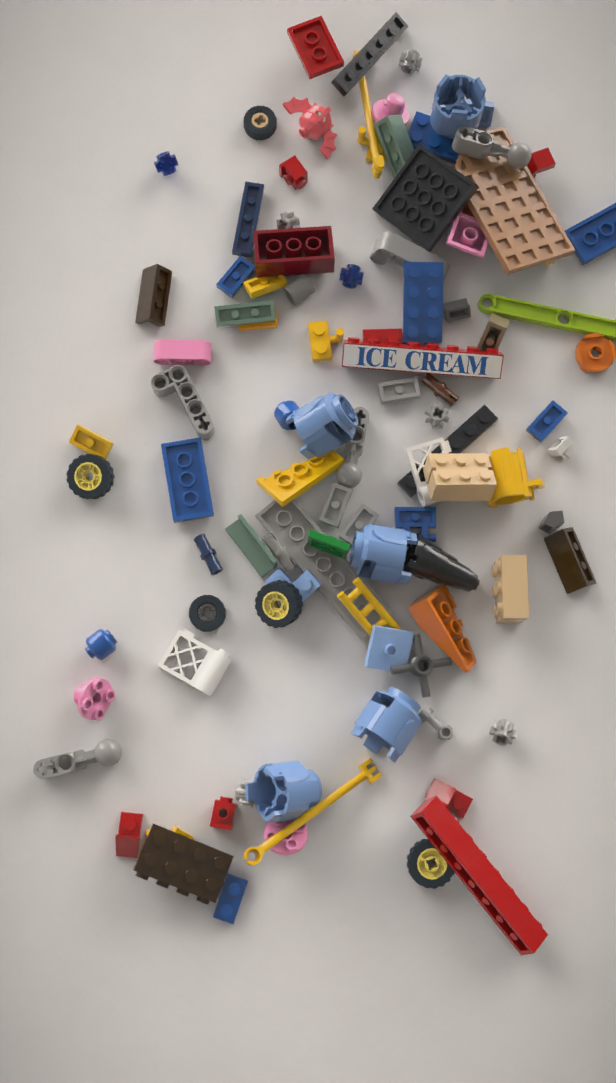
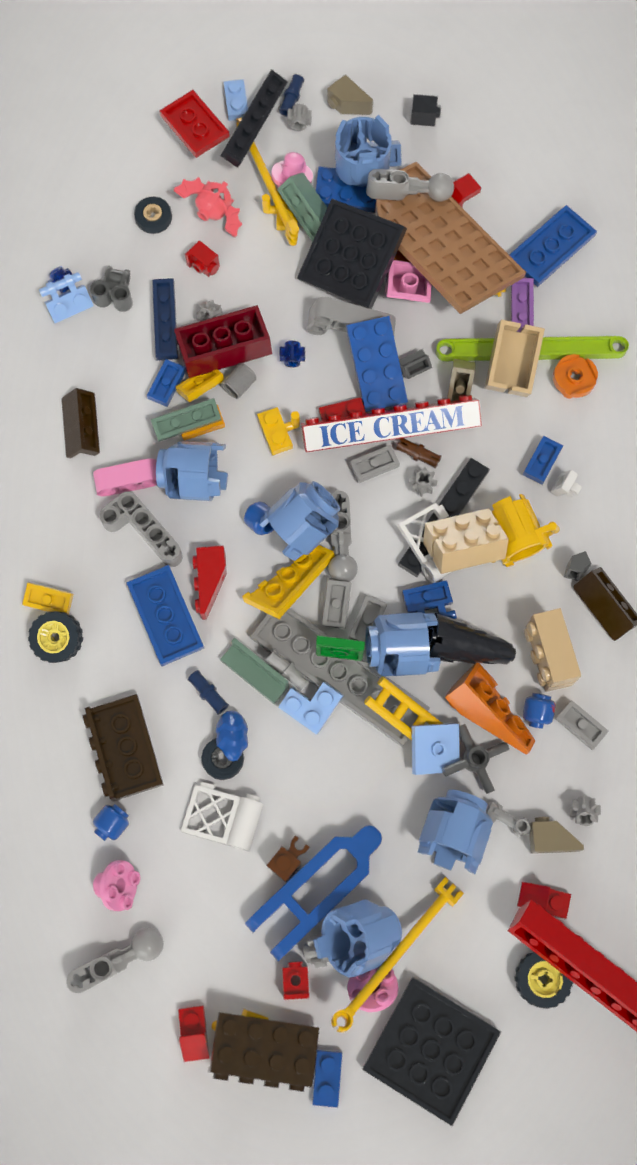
camera: 10 degrees left, 5 degrees down
(125, 584) = (123, 748): none -> dark brown bracket
(166, 186) = (69, 303): none -> light blue plate
(211, 180) = (113, 286): none -> dark grey piece
(219, 595) = (232, 734): none -> blue arm
(235, 453) = (211, 575): none -> red slope
(238, 360) = (191, 471): none -> medium blue piece
(238, 713) = (285, 861): none -> reddish brown brick
(268, 605) = (288, 731): black wheel -> none
(304, 716) = (360, 846): none -> blue piece
(322, 898) = (431, 1051): none -> black plate
(358, 32) = (235, 99): none -> light blue plate
(409, 38) = (292, 94): none -> dark blue pin
(459, 54) = (349, 98): none -> dark tan slope
(468, 747) = (552, 837): none -> dark tan slope
(486, 637) = (539, 710): none -> blue head
(519, 659) = (582, 725): none -> light grey plate
(524, 80) = (425, 110): none -> black brick
(544, 325) = (514, 358): none -> tan piece
(564, 282) = (522, 302): none -> medium lavender plate

